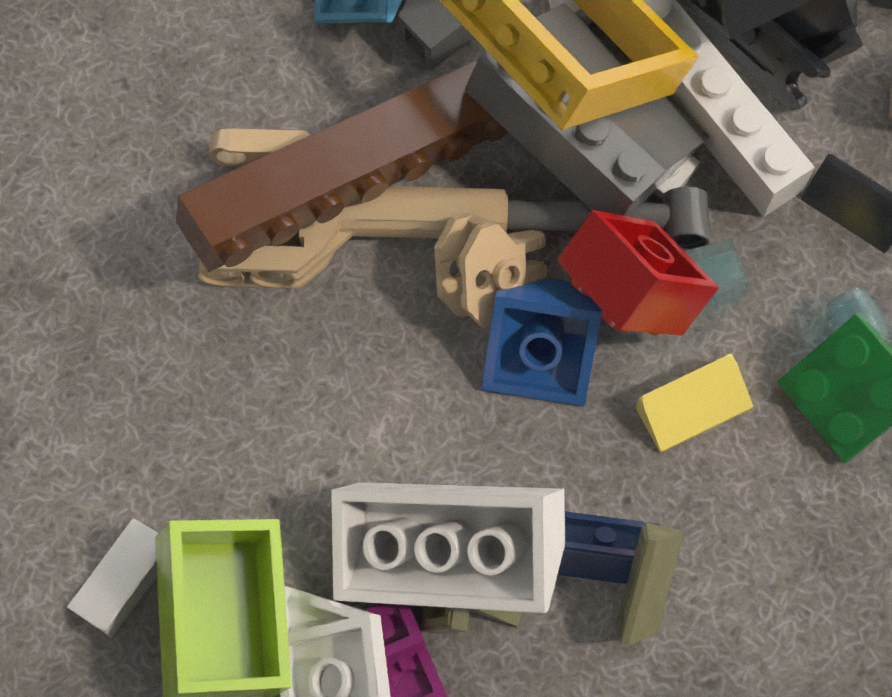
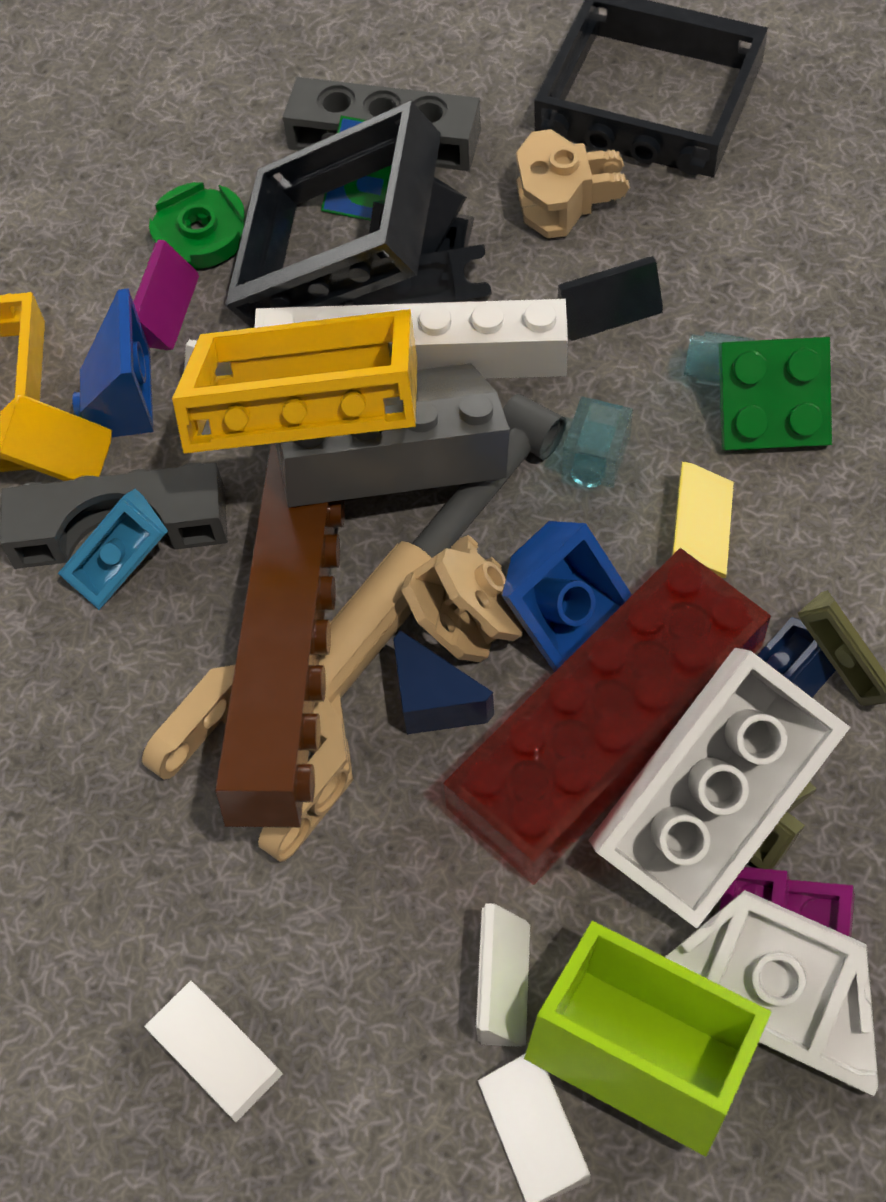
camera: 50 degrees left, 10 degrees down
(40, 328) = (213, 1051): none -> white slope
(215, 484) = (502, 978): none -> white slope
(397, 294) = (436, 692): none -> dark blue slope
(467, 430) = (601, 715): none -> clear red brick
(636, 274) = (569, 478): red brick -> none

